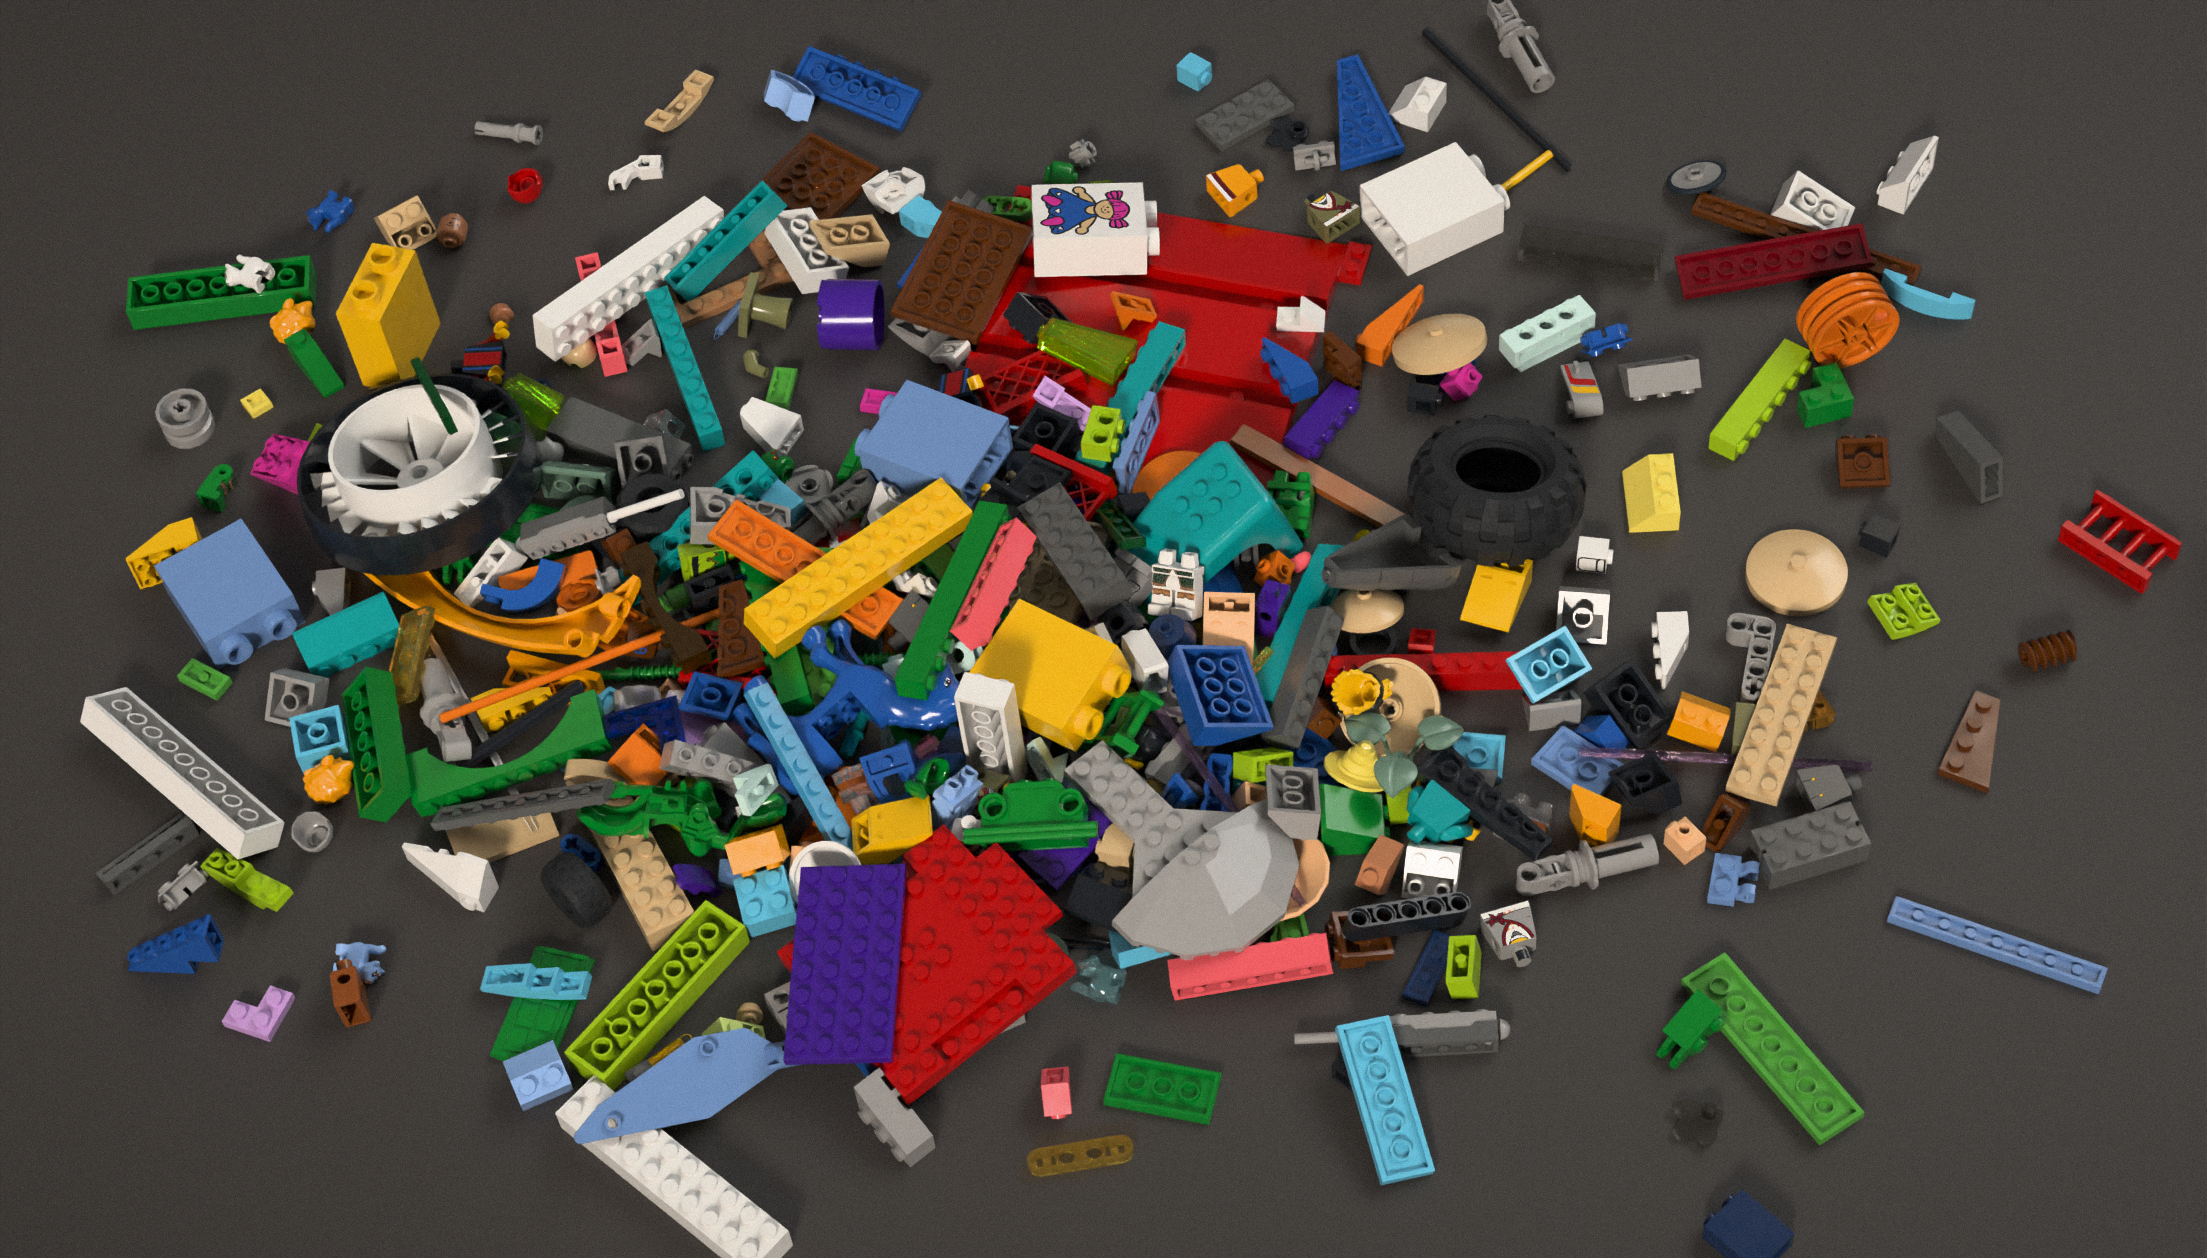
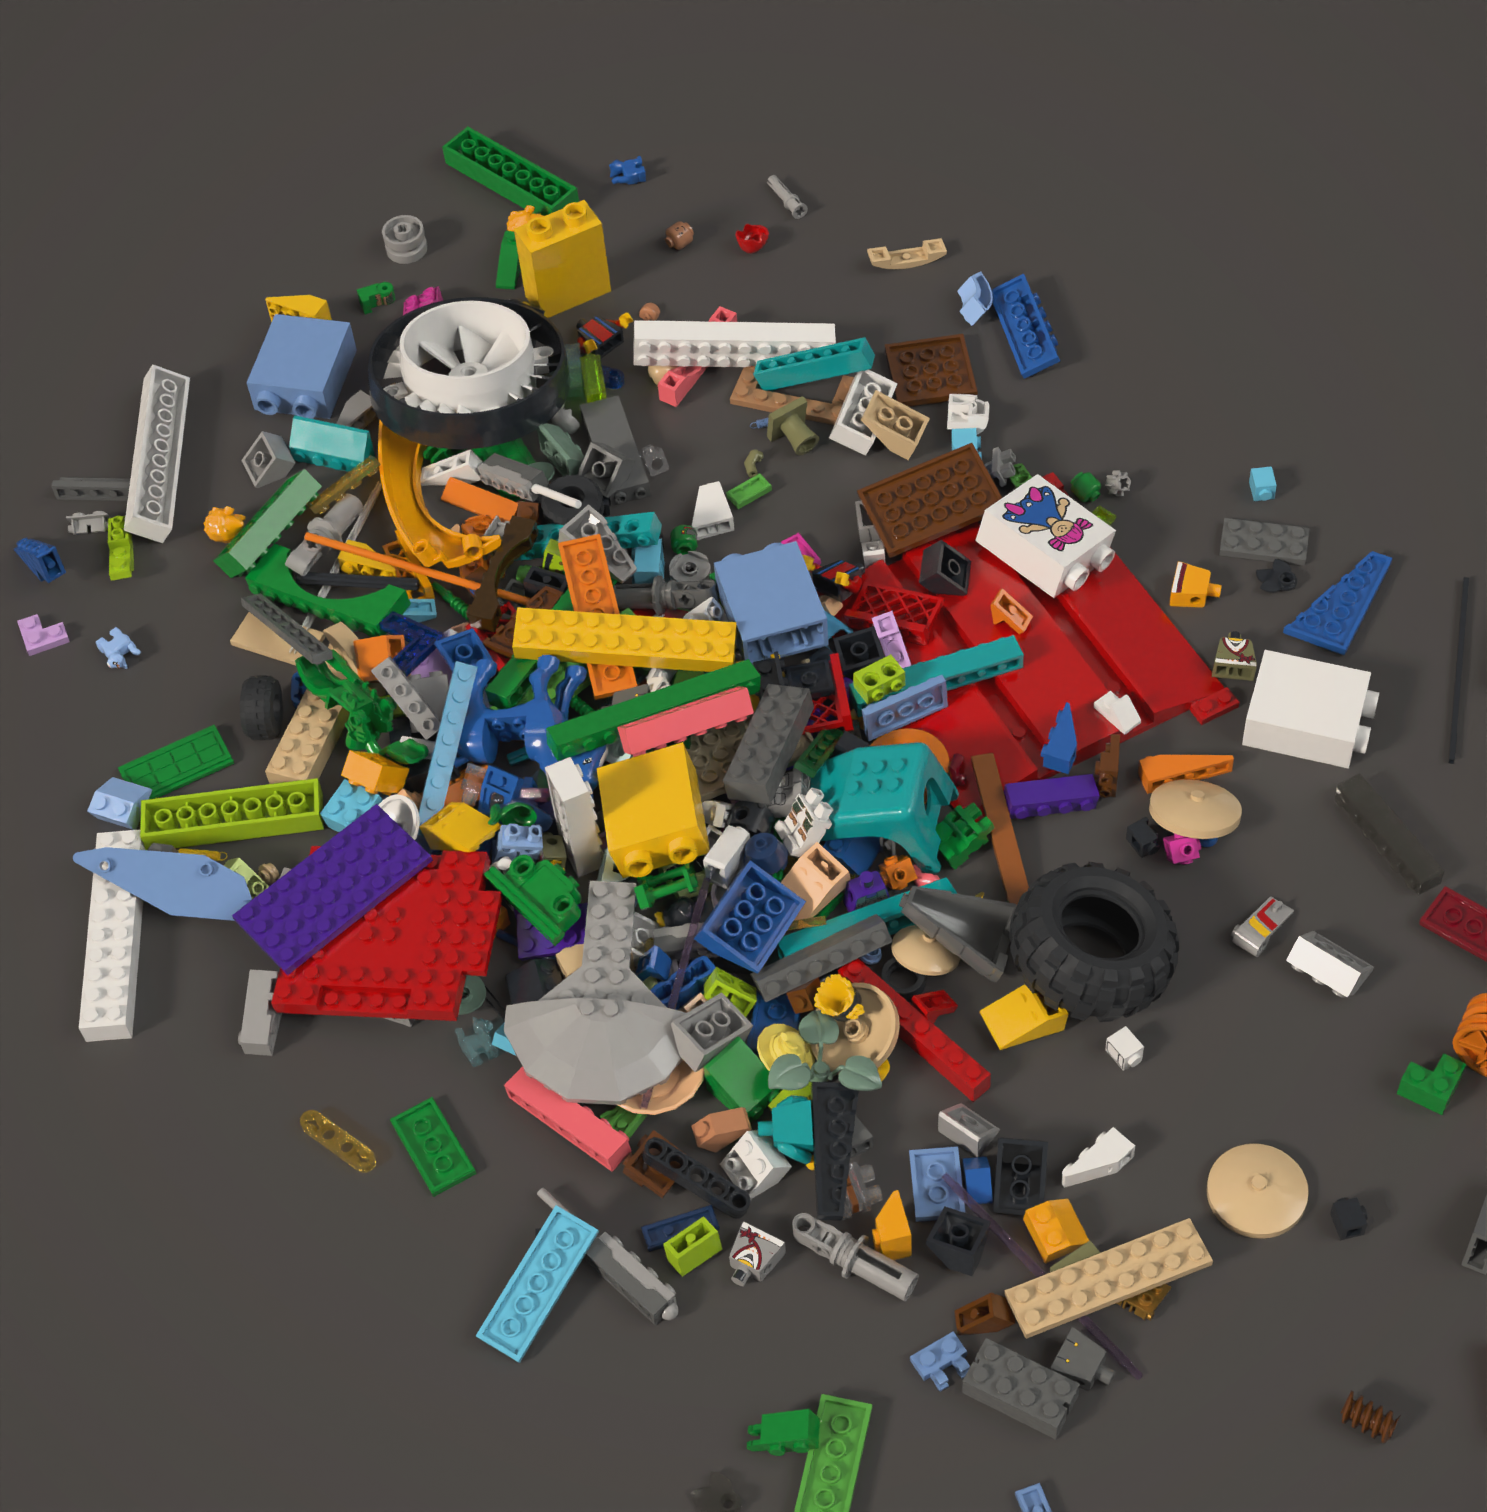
camera: 45 degrees right, 0 degrees up
(204, 679) = (238, 408): bright green plate -> none
(250, 274) = (527, 173): white animal -> none
(256, 403) = (456, 261): light yellow tile -> none
(312, 831) = (182, 548): light grey hair -> none
(319, 735) = (246, 493): medium azure brick -> none
(349, 994) = (85, 662): dark orange torso -> none
(407, 225) = (657, 211): tan slope -> none
(434, 396) = (507, 325): dark green tile -> none
(461, 876) = (219, 648): white wedge -> none
(533, 596) = (463, 505): blue arch -> none
(536, 983) = (183, 746): medium azure slope -> none
(634, 696) = (432, 617): light grey hair -> none
(642, 342) = (703, 394): light grey slope -> none
(644, 167) = (838, 281): white piece -> none
(685, 369) = (702, 431): teal brick -> none
(696, 879) = (330, 759): dark purple slope -> none
(754, 788) = (415, 731): light aqua slope -> none
(851, 314) = (834, 473): dark purple brick -> none
(1056, 1092) = (369, 1086): coral slope -> none
(1086, 348) = (946, 617): clear neon green slope -> none
(1314, 155) = (1274, 607): light grey hips -> none
(1419, 103) = (1395, 629): white slope -> none
(1482, 751) = (883, 1116): medium azure tile -> none
(1527, 170) = (1410, 737): yellow bar -> none
(1547, 333) = (1287, 874): light aqua brick -> none
(1549, 665) = (987, 1094): medium azure slope -> none
(1584, 613) = (1066, 1083): light grey slope -> none
(1614, 338) = (1329, 909): blue hinge -> none
(1652, 494) = (1220, 1044): light yellow slope -> none
(1684, 840) = (941, 1302): light nougat brick -> none
(1759, 400) = (1381, 1043): lime brick -> none
(1759, 650) = (1159, 1212): light grey beam -> none
(1862, 462) = (1401, 1154): reddish brown plate -> none
(1903, 611) = (1301, 1289): lime slope -> none
(1972, 748) = (1231, 1431): reddish brown wing -> none

